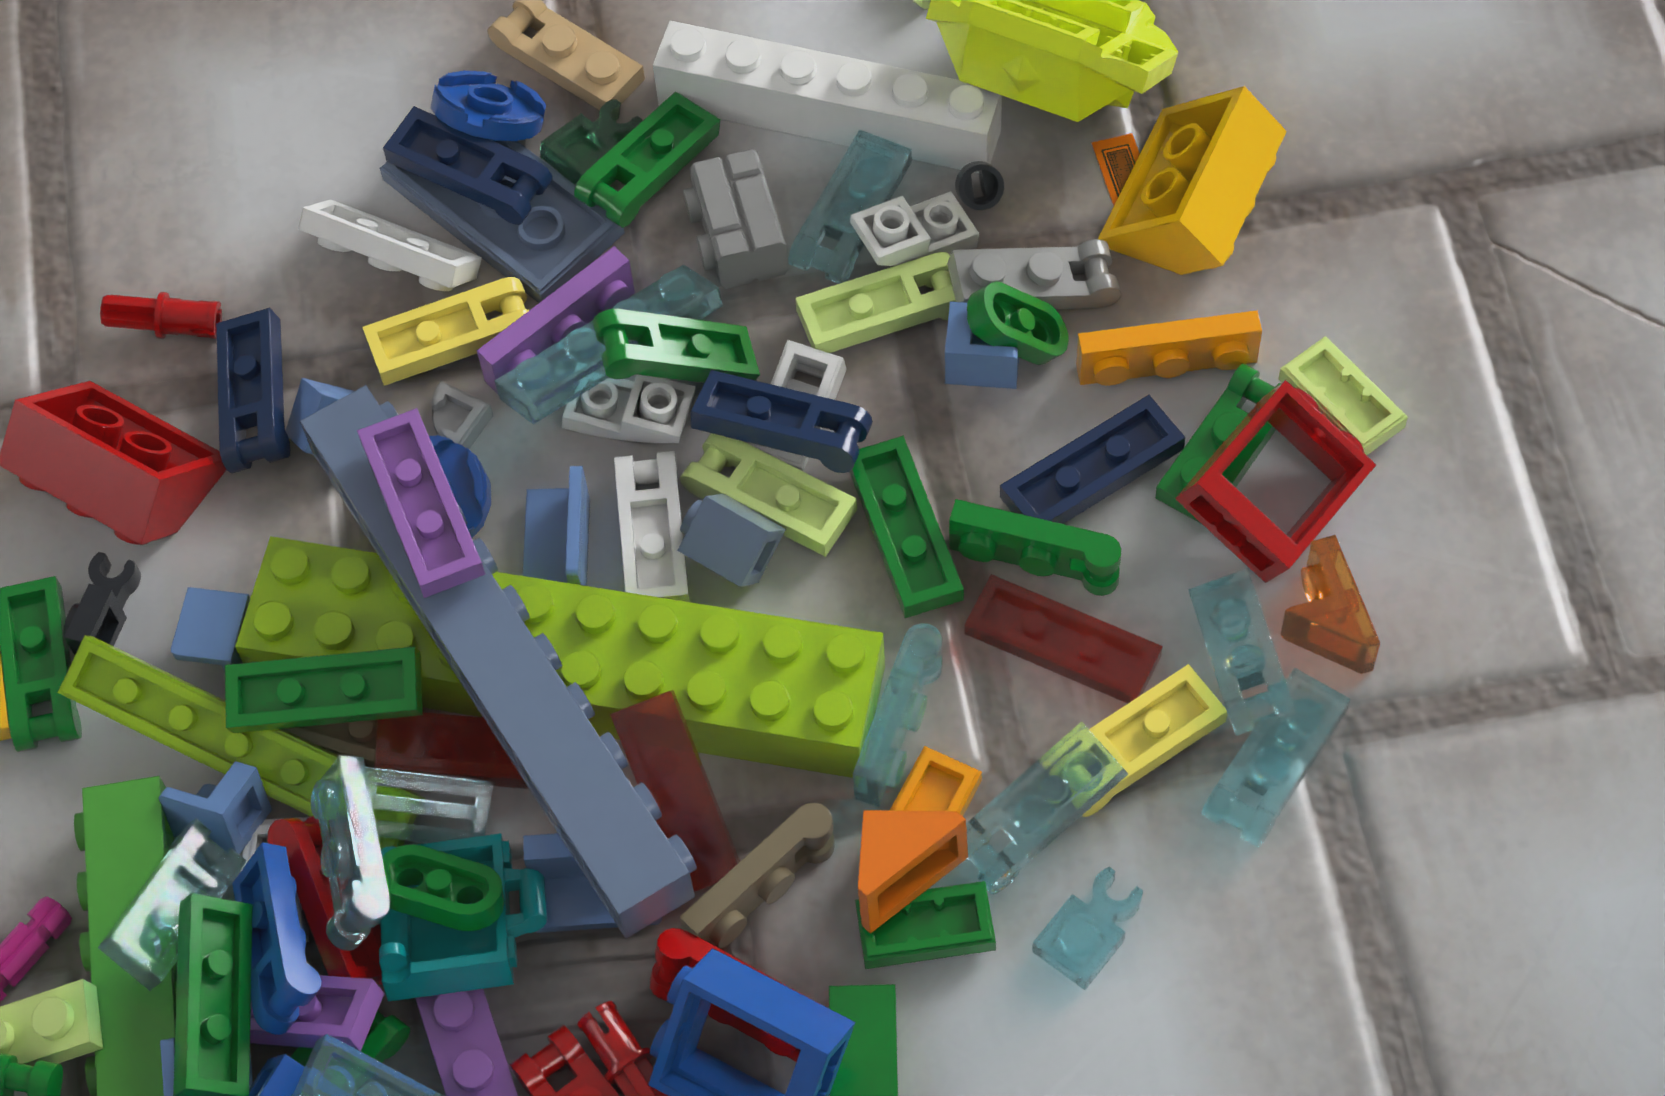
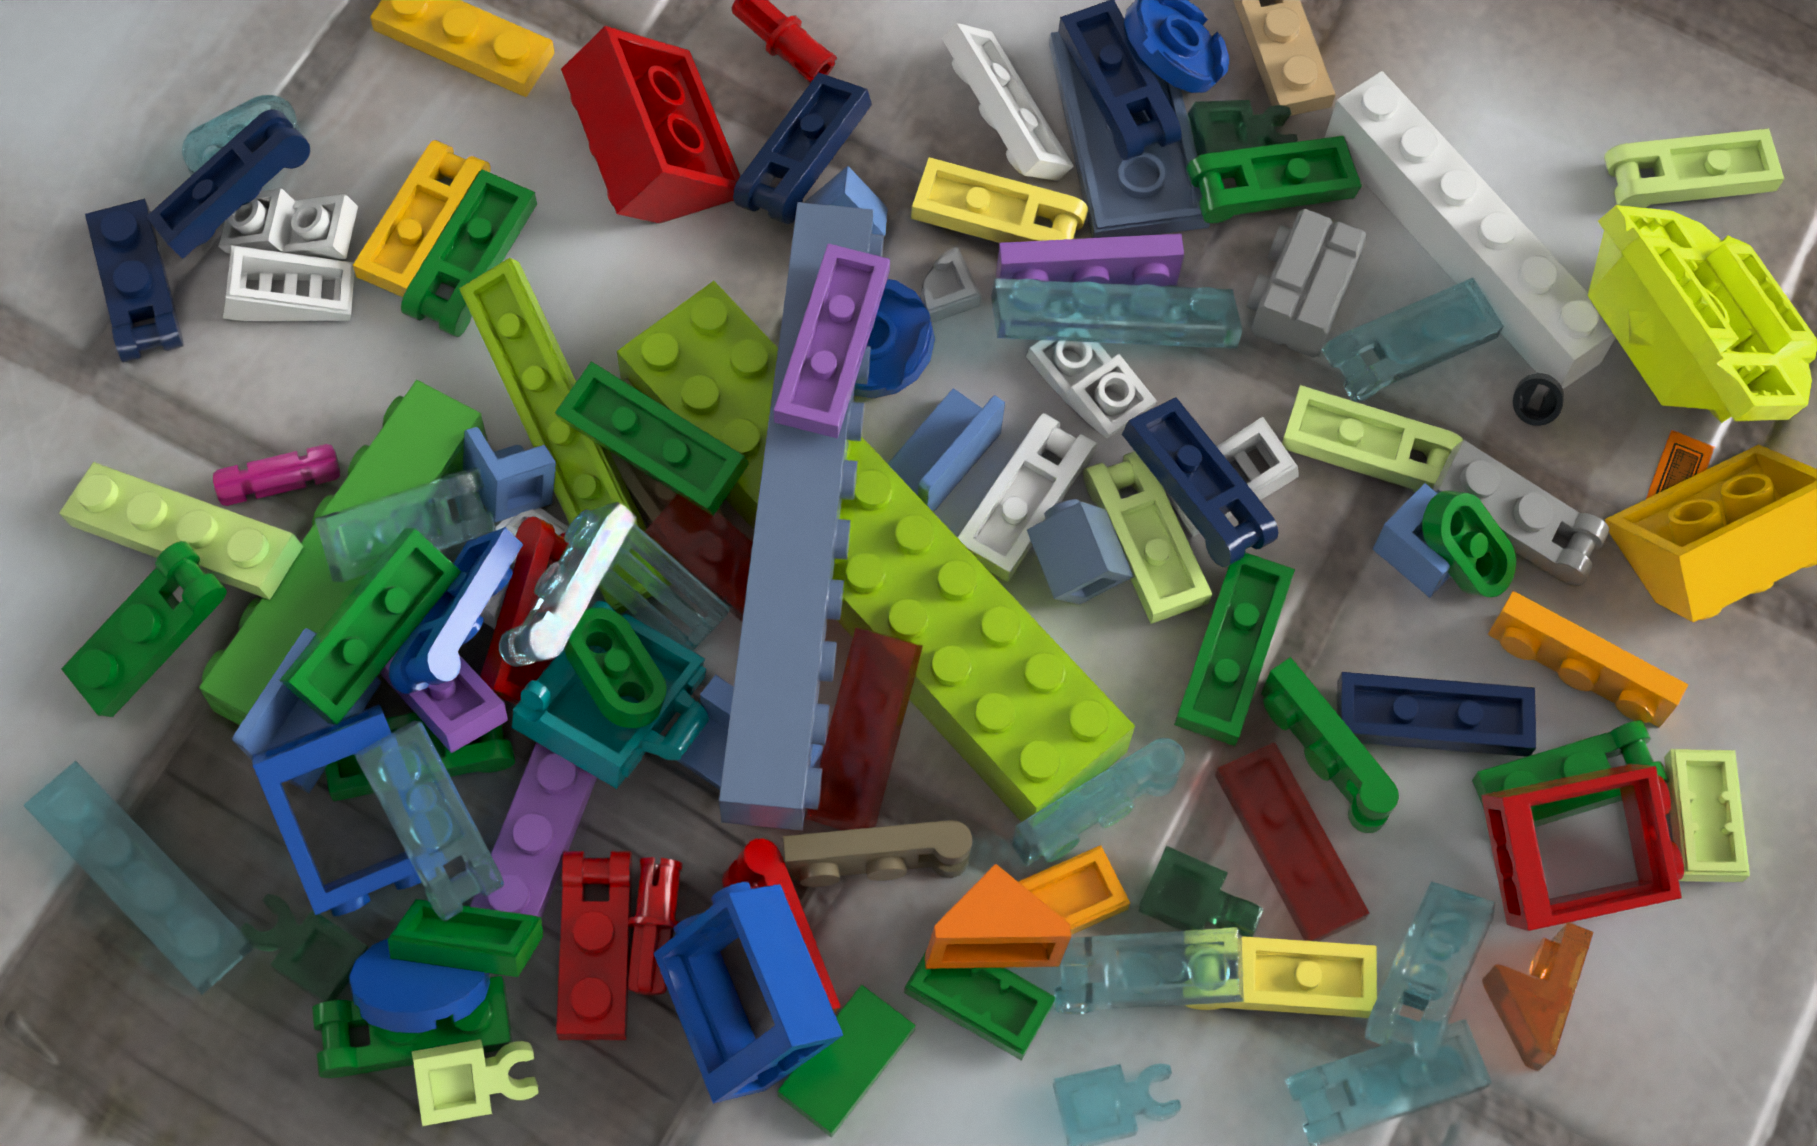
camera: 30 degrees right, 5 degrees up
(102, 605) = (545, 246): black plate -> none
(210, 627) = (612, 321): medium blue panel -> none
(672, 346) = (1161, 356): green plate -> none
(904, 233) = (1436, 394): white slope -> none
(1021, 732) = (1190, 894): none -> clear green plate

